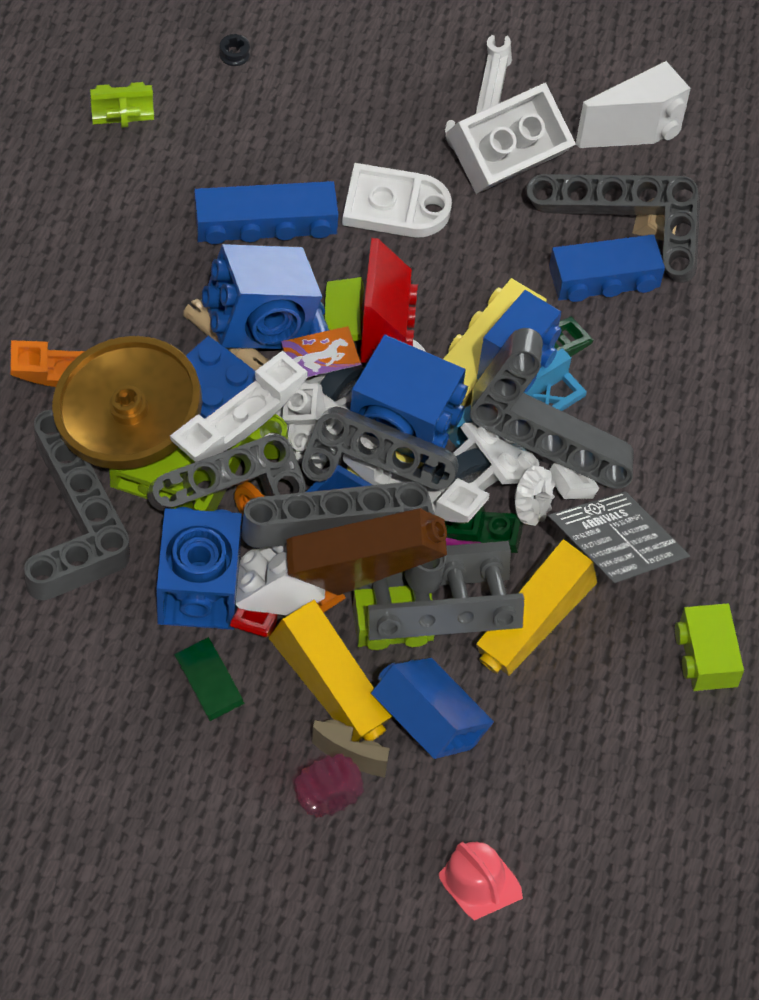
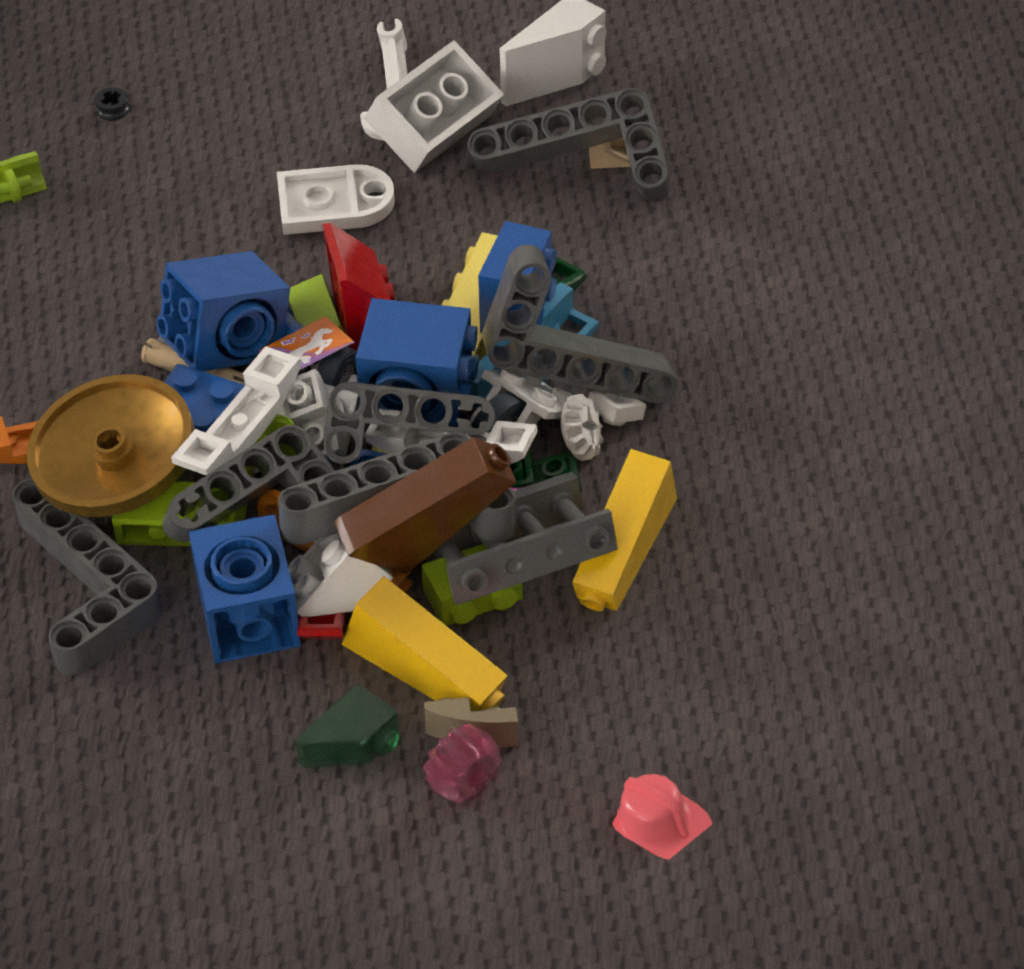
camera: 10 degrees left, 10 degrees down
(209, 679) = (289, 695): dark green slope -> none
(247, 725) = (350, 732): none -> clear green slope
(266, 212) = (214, 230): blue brick -> none
(431, 707) = (547, 654): blue brick -> none
(606, 268) = (579, 200): blue brick -> none
(619, 536) = (686, 439): dark grey sticker -> none
(709, 647) = (821, 522): lime brick -> none

